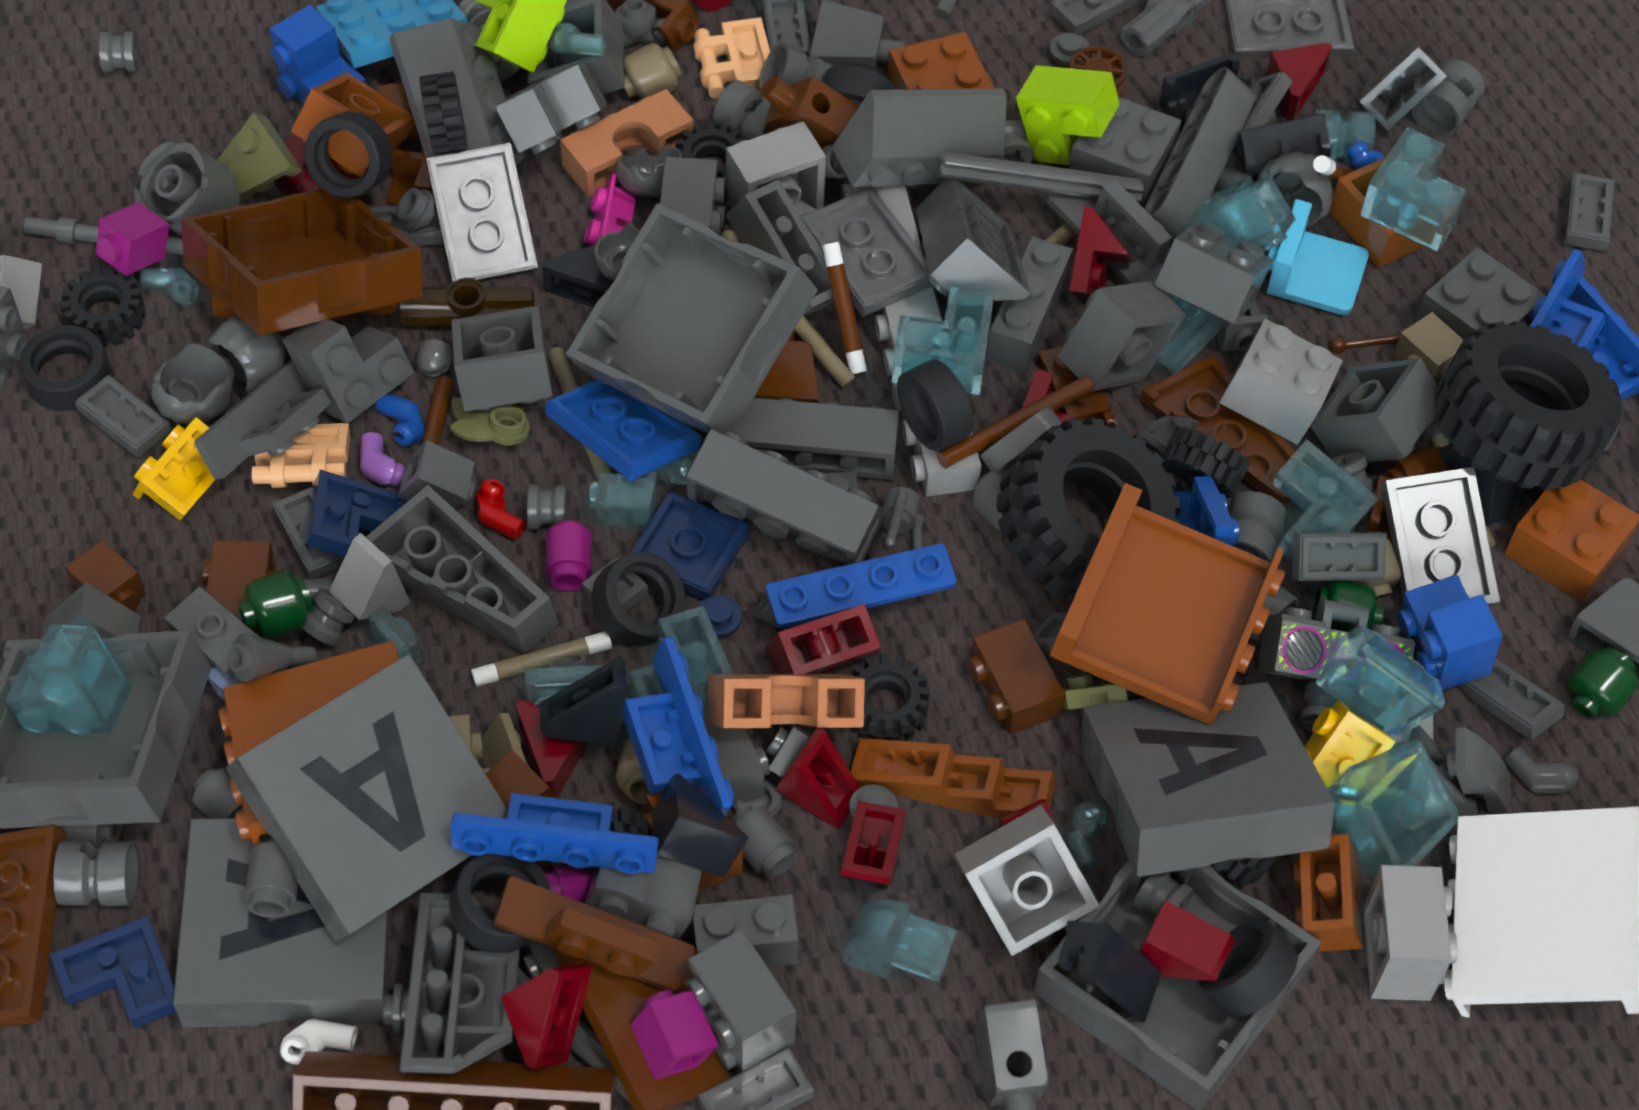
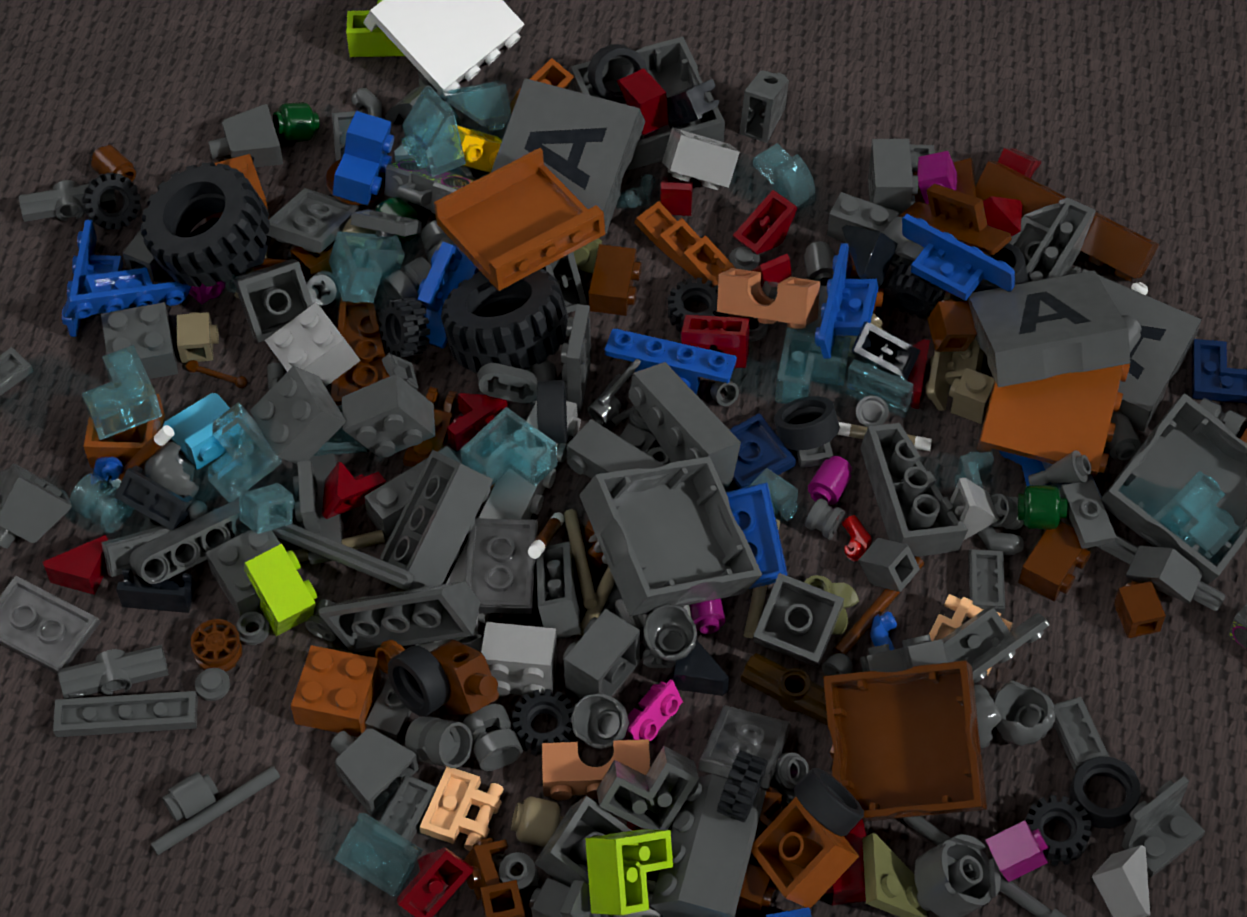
camera: 145 degrees left, 0 degrees up
(172, 280) = (989, 821): clear light blue arm -> none
(179, 474) = (1055, 667): yellow bracket -> none
(342, 508) = (964, 571): dark blue plate -> none
(377, 465) = (920, 610): medium lavender arm -> none
(572, 42) = (600, 813): clear light blue arm -> none
(723, 614) = (760, 402): dark blue plate -> none
(961, 500) = (577, 356): none -> dark grey plate
(999, 429) = (484, 401): reddish brown bar -> none
(1155, 169) = (266, 508): none -> clear light blue brick
(1408, 932) = (521, 50): light grey brick -> none

